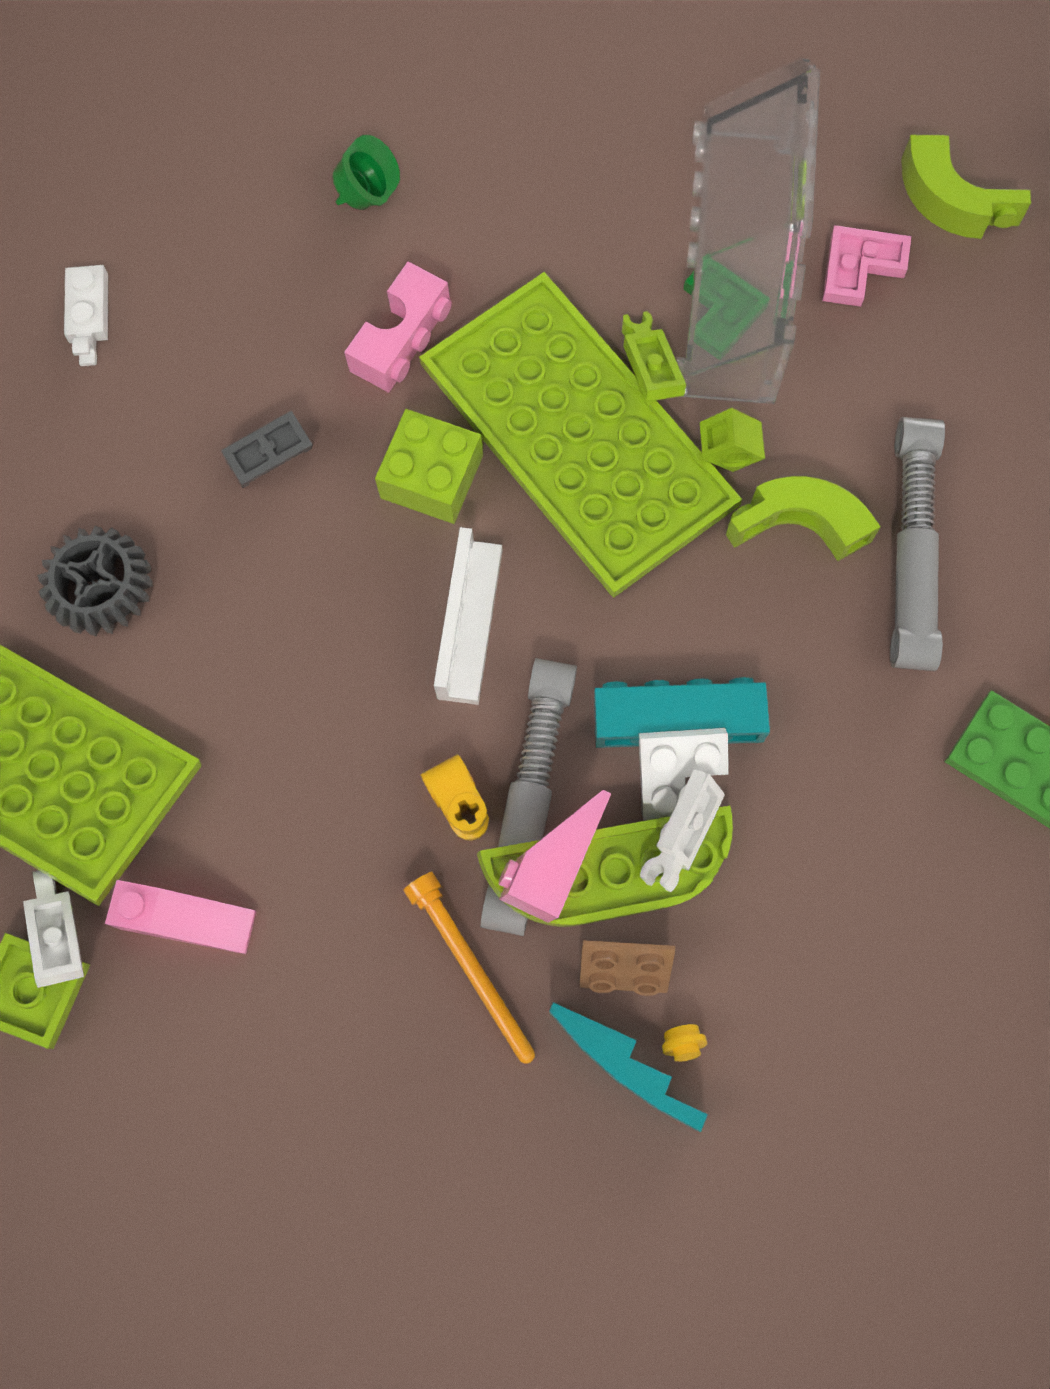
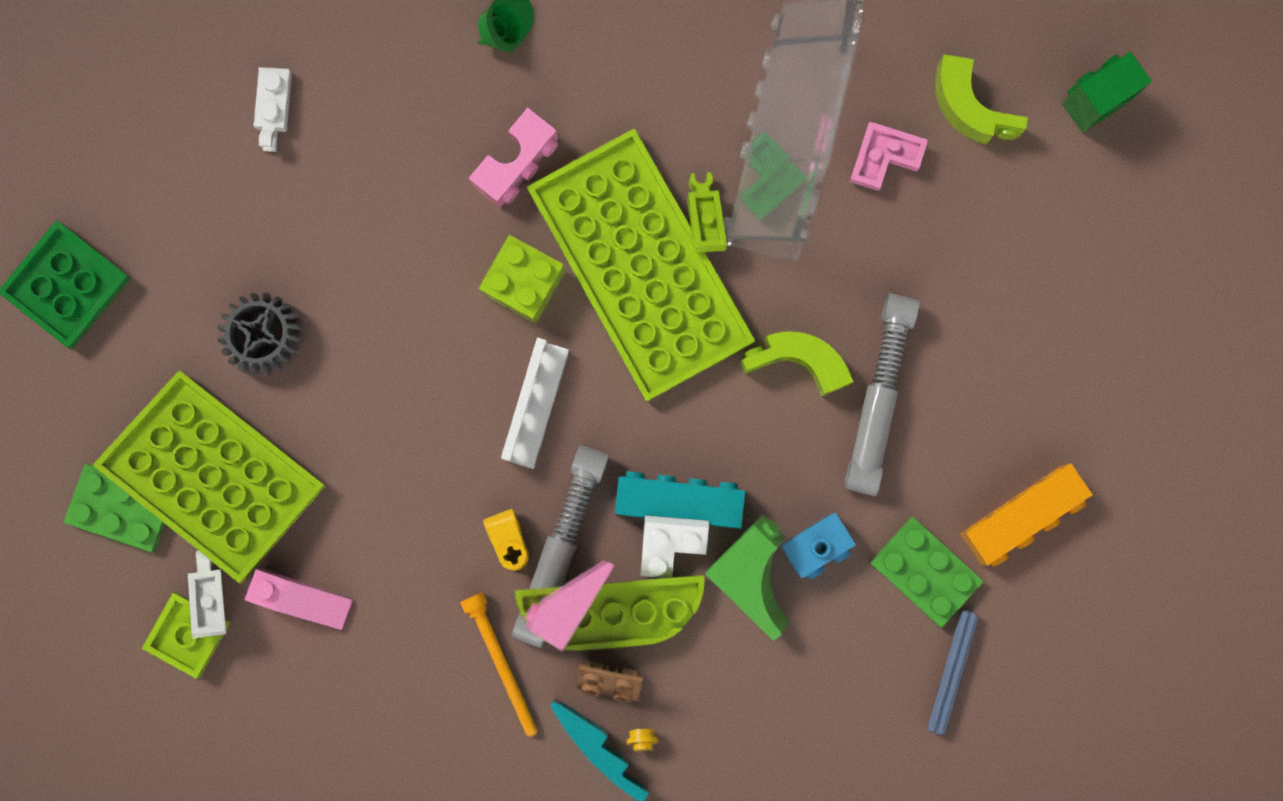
camera: 10 degrees right, 10 degrees up
(266, 448) = (400, 249): dark grey hinge -> none
(684, 830) = (665, 594): white plate -> none
(732, 440) = (755, 293): lime brick -> none
(785, 790) = (745, 575): none -> bright green arch
(874, 744) = (818, 546): none -> dark azure brick

